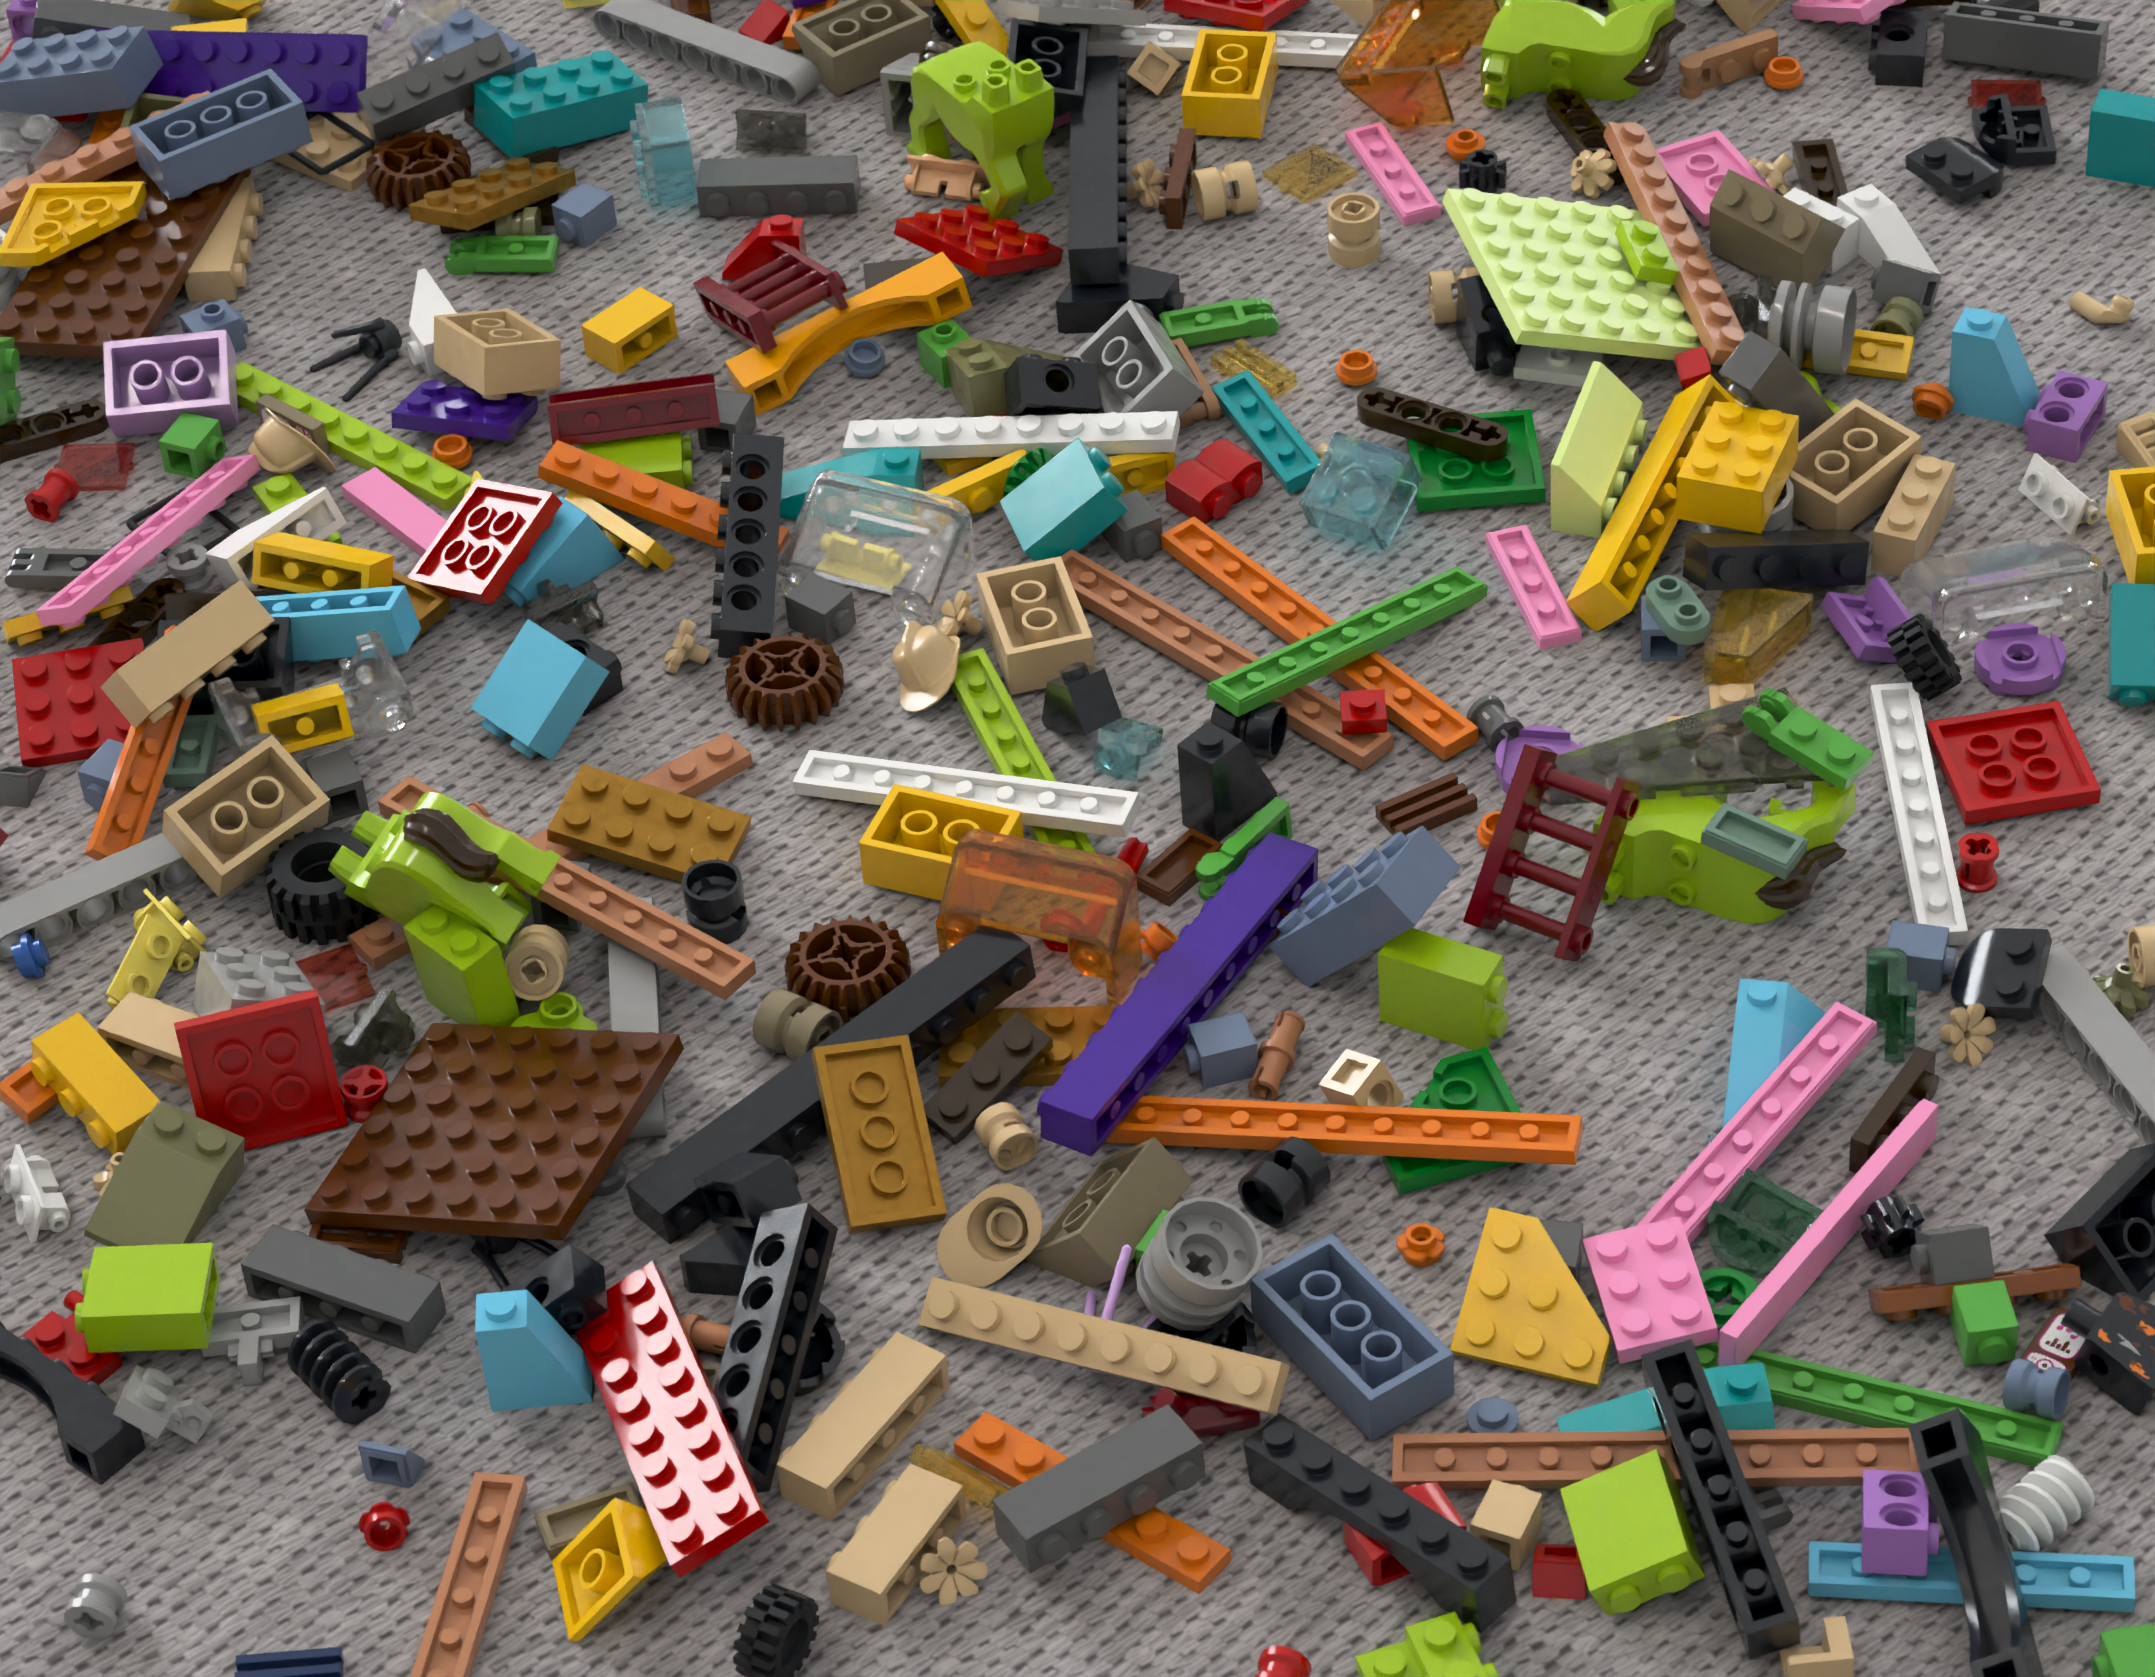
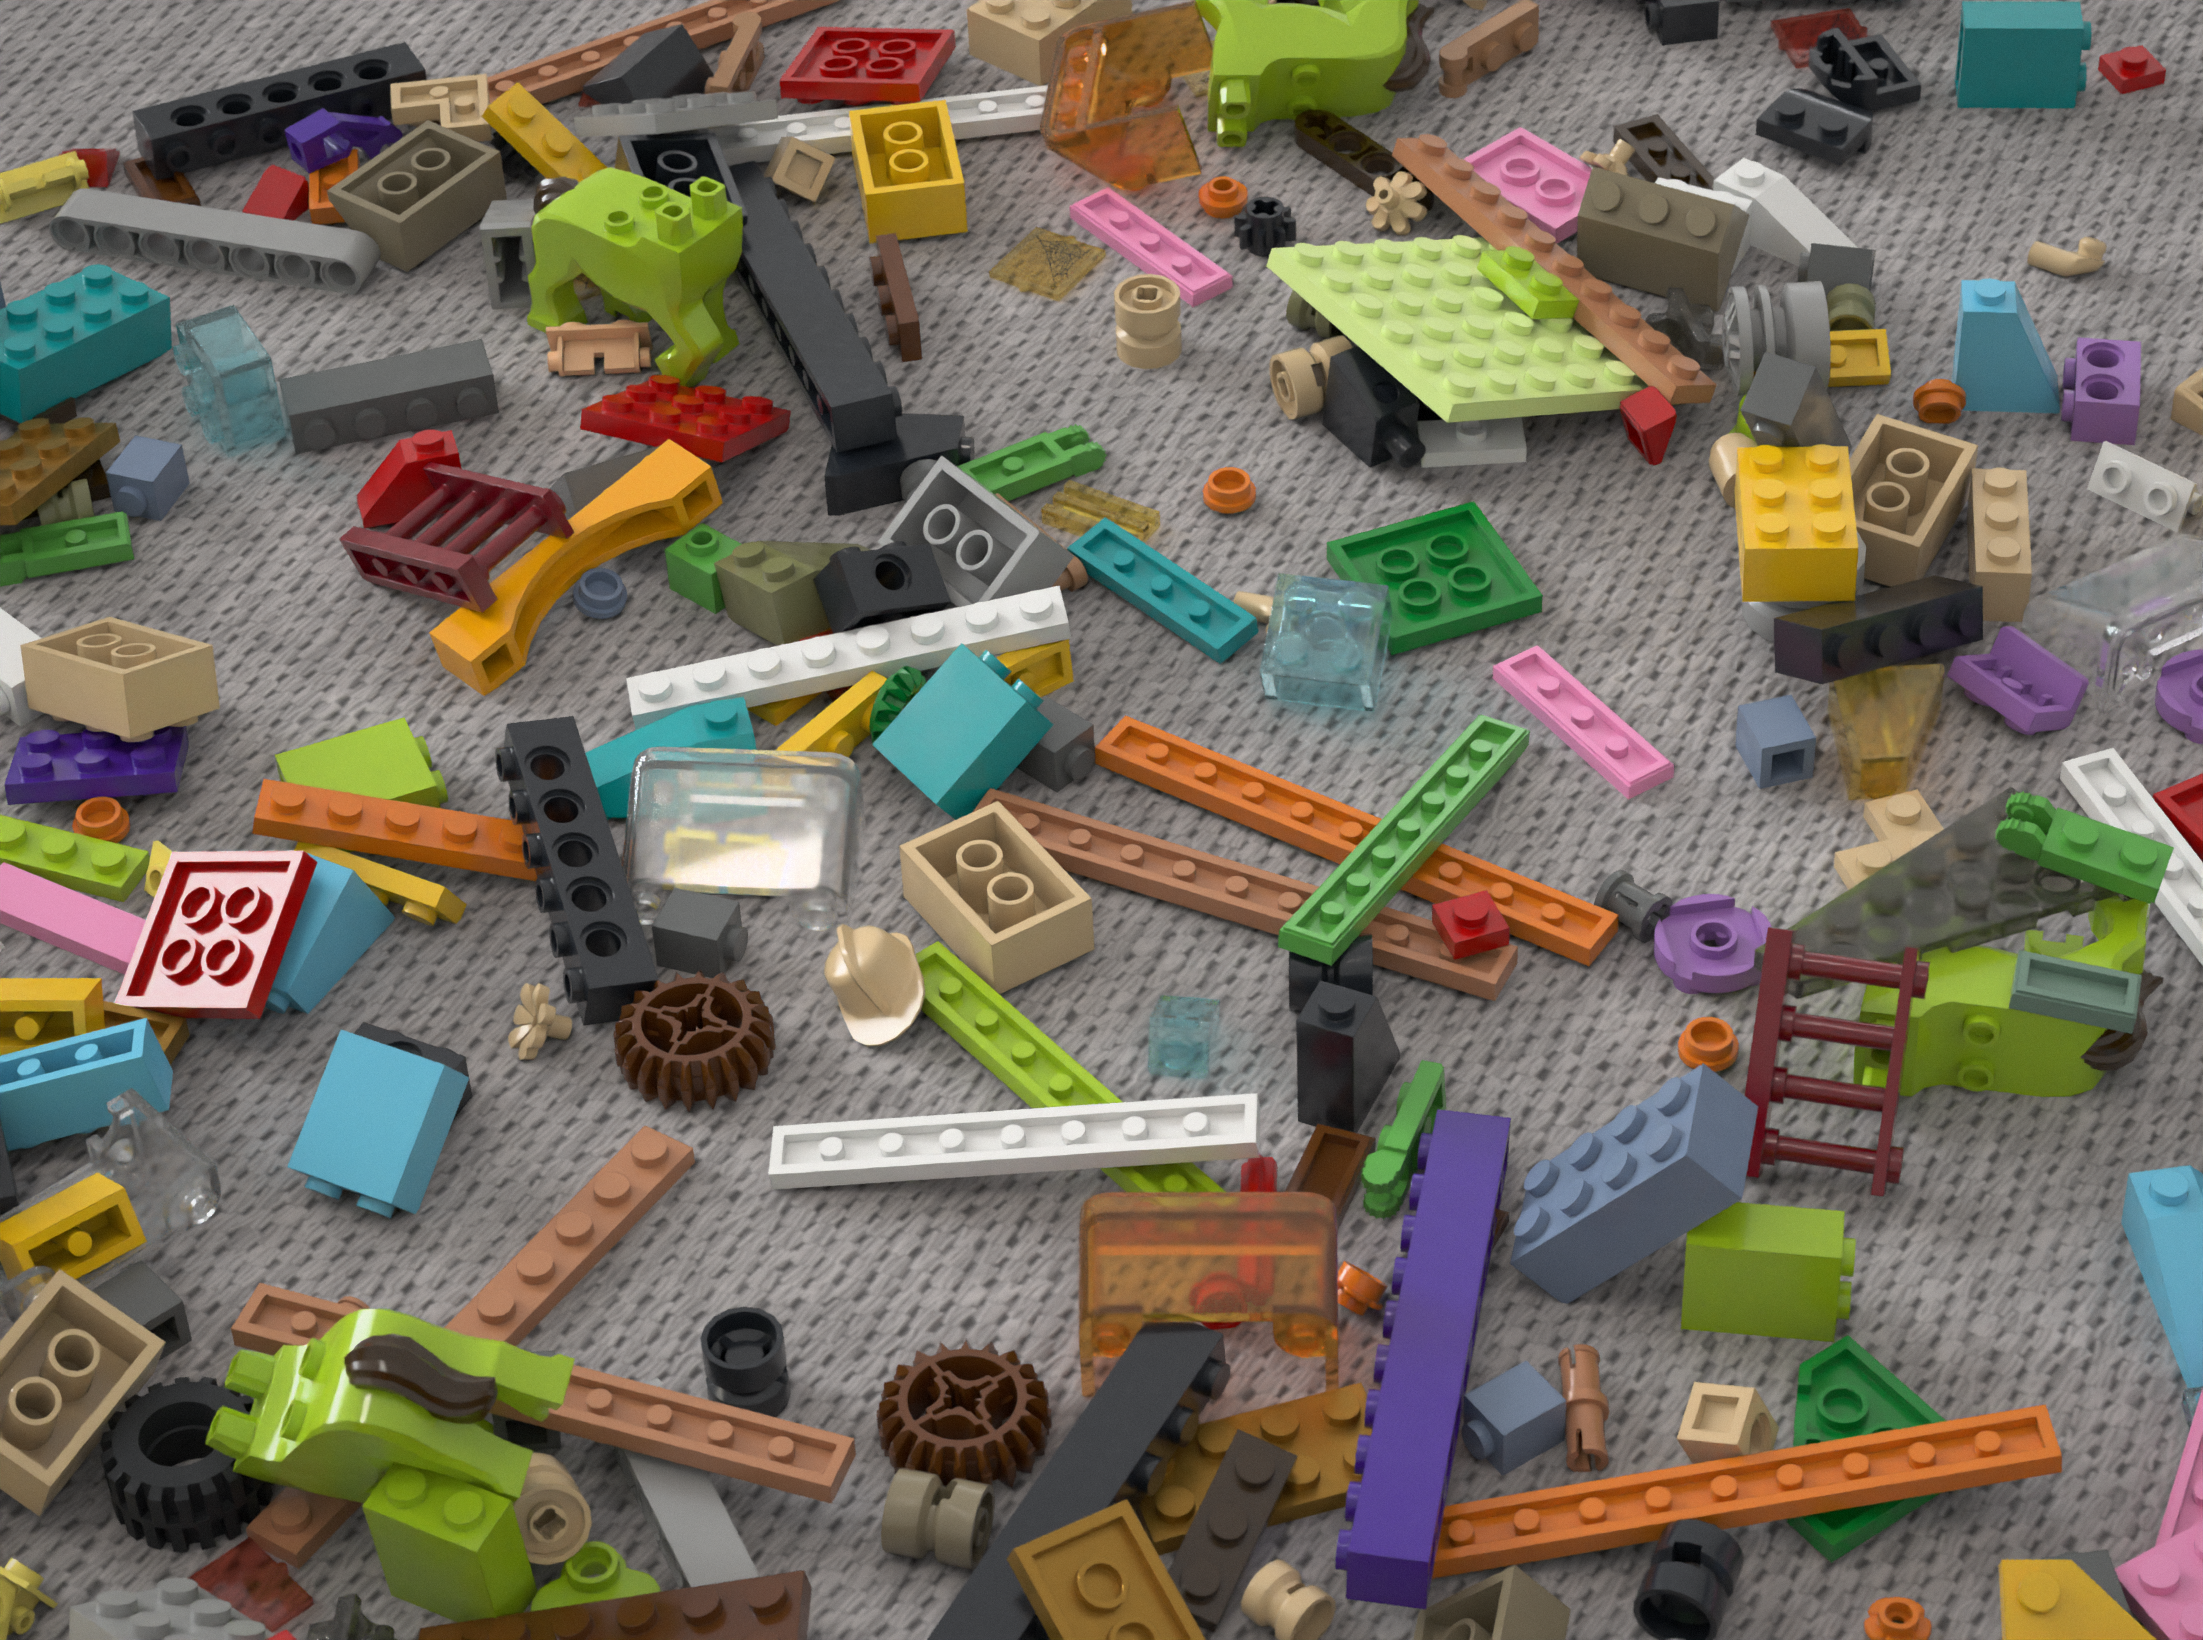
camera: 20 degrees left, 0 degrees up
(566, 605) = (343, 1000): clear smoke hips -> none
(629, 330) = (274, 616): yellow brick -> none
(633, 409) = (337, 718): dark red fence -> none
(644, 825) = (601, 1280): pearl gold plate -> none
(735, 416) = (458, 711): dark grey brick -> none
(771, 131) = (347, 329): clear smoke hips -> none
(915, 836) = (1006, 1219): yellow brick -> none
(958, 616) = (883, 904): tan plant -> none
(1079, 700) = (1110, 987): black slope -> none
(1147, 184) = (860, 305): tan plant -> none
(1211, 193) = (962, 302): tan wheel -> none
(1214, 481) = (1127, 666): red brick -> none
(1422, 803) = (1590, 1025): reddish brown tile -> none
(1476, 439) = (1447, 550): dark brown beam -> none
(1596, 454) = (1590, 546): yellowish green slope -> none
(1644, 513) = (1685, 592): yellow brick -> none
(1677, 610) = (1798, 716): sand green plate -> none
(1783, 73) = (1555, 49): orange plate -> none
(1924, 657) = (2115, 714): black tyre -> none

